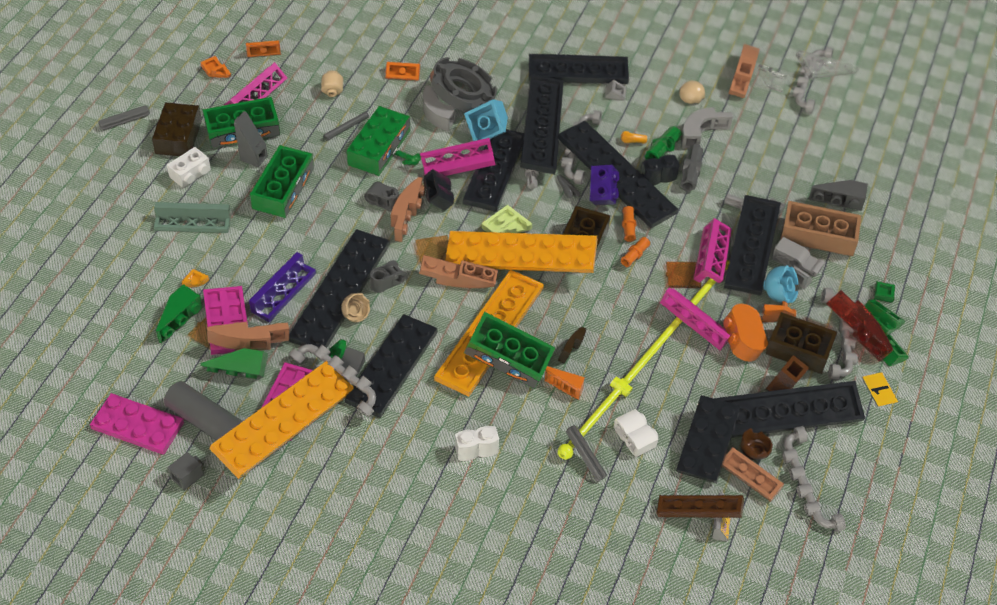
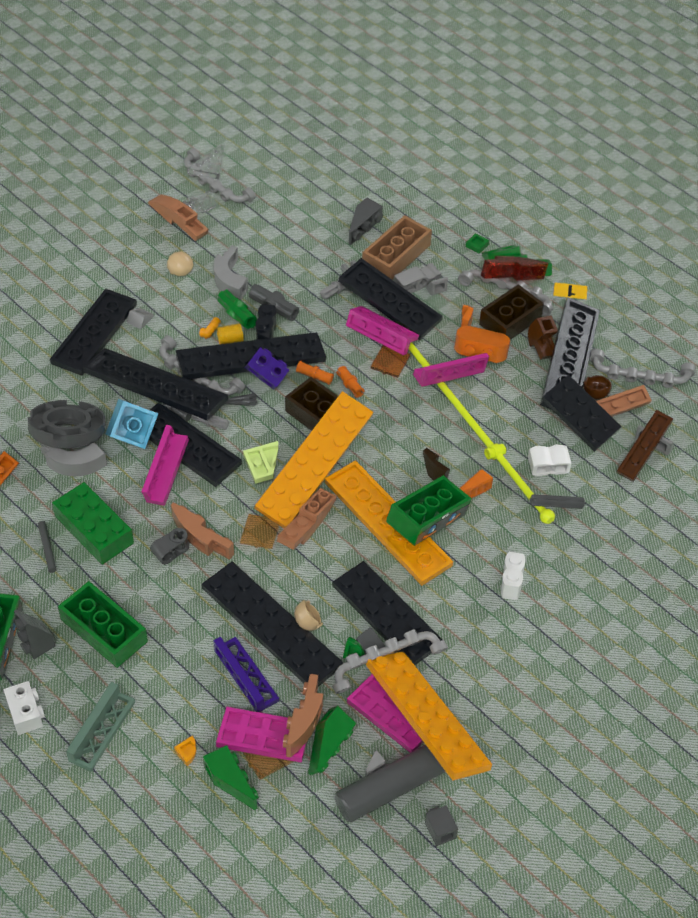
camera: 65 degrees left, 0 degrees up
(137, 423) = (356, 858): dark pink plate -> none
(229, 403) = (375, 763): none -> light grey slope
(386, 277) = (279, 579): dark grey piece -> none
(409, 159) = (132, 505): green piece -> none
(438, 189) = (189, 494): black brick -> none
(632, 151) = (230, 334): none -> yellow piece
(781, 284) = (445, 300): medium azure cylinder -> none

